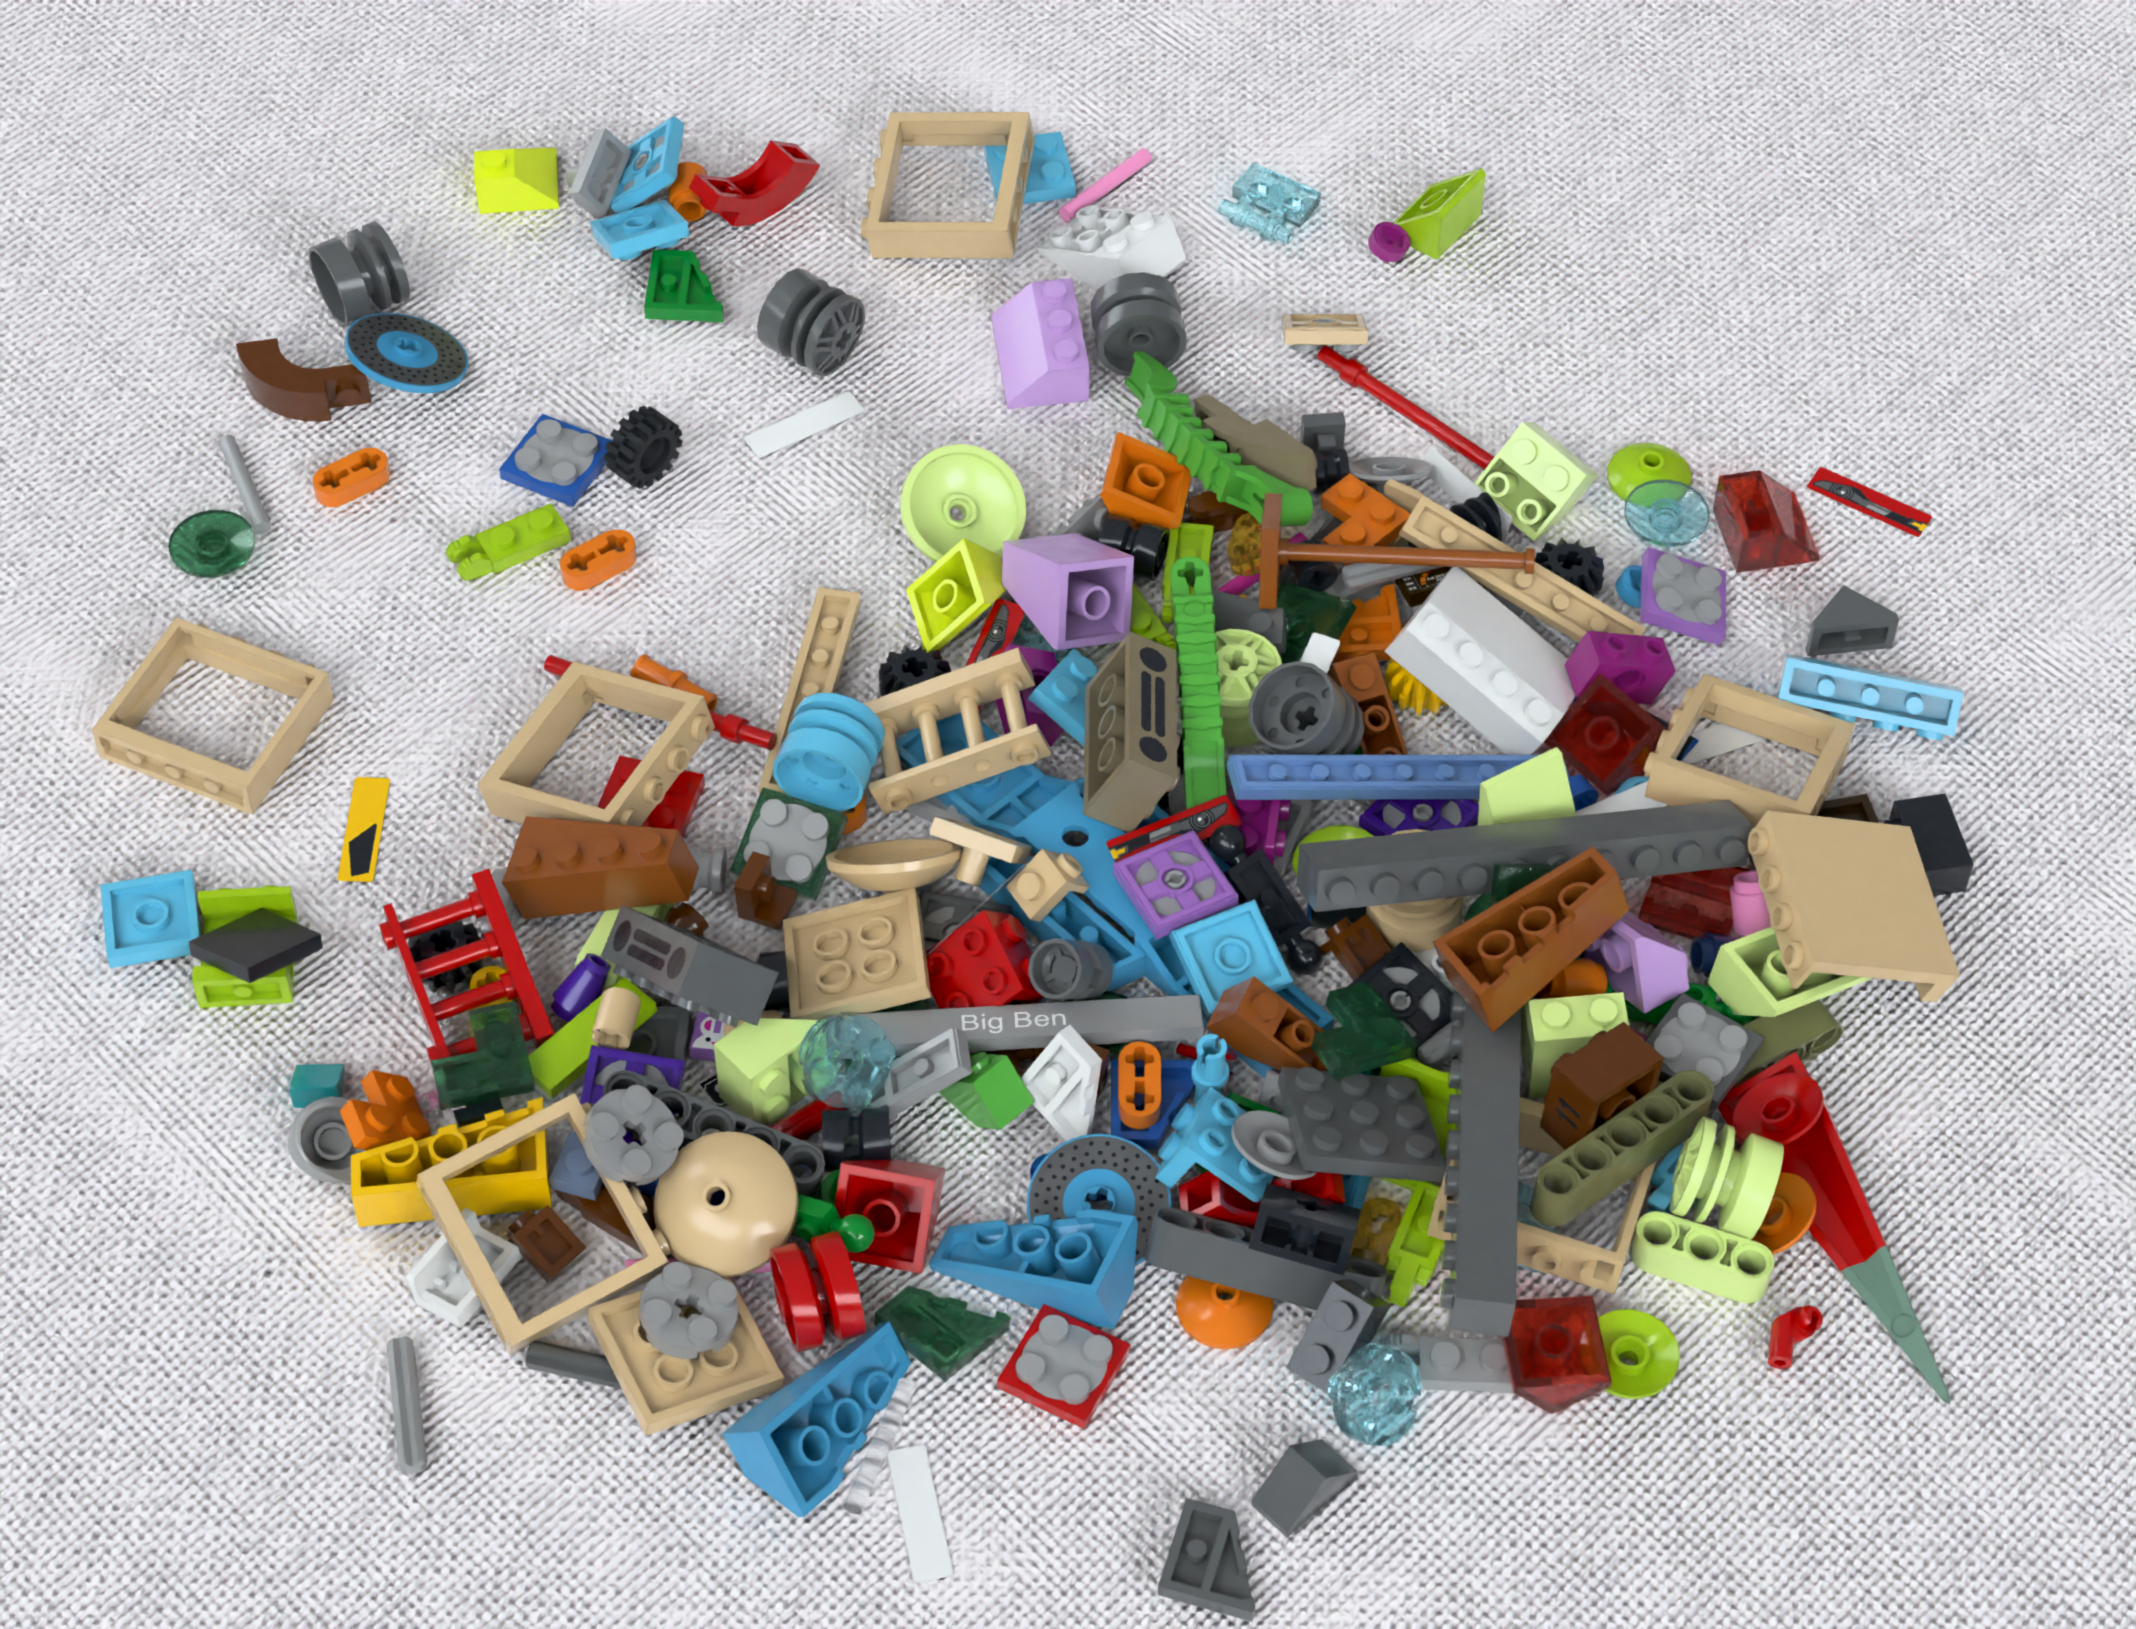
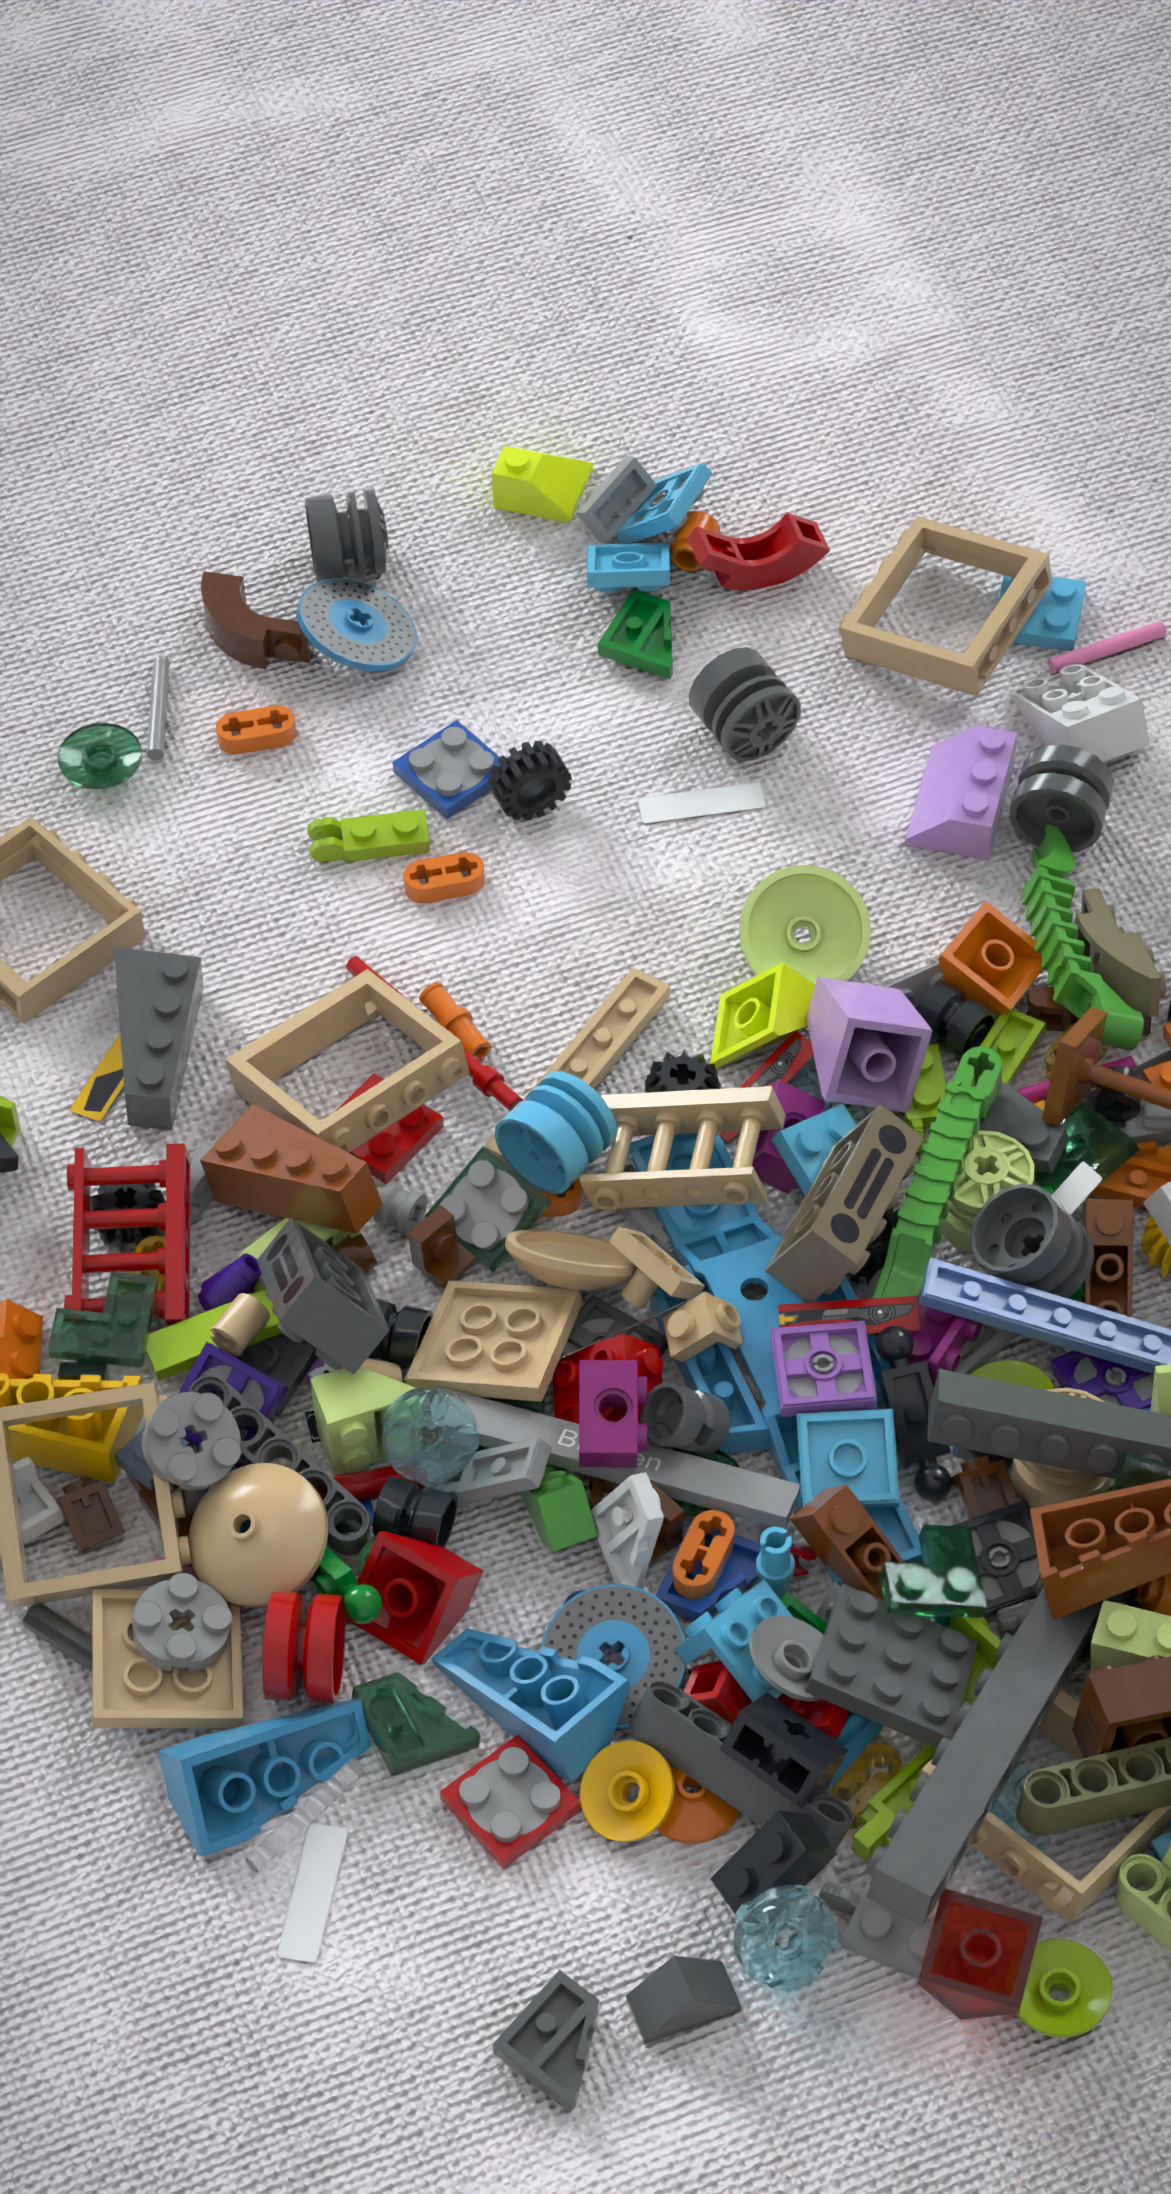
camera: 25 degrees right, 0 degrees up
(389, 772) = (157, 1024): none -> dark grey wedge
(1007, 1011) = (605, 1385): none -> magenta brick
(1147, 1312) = (608, 1785): none -> yellow dish

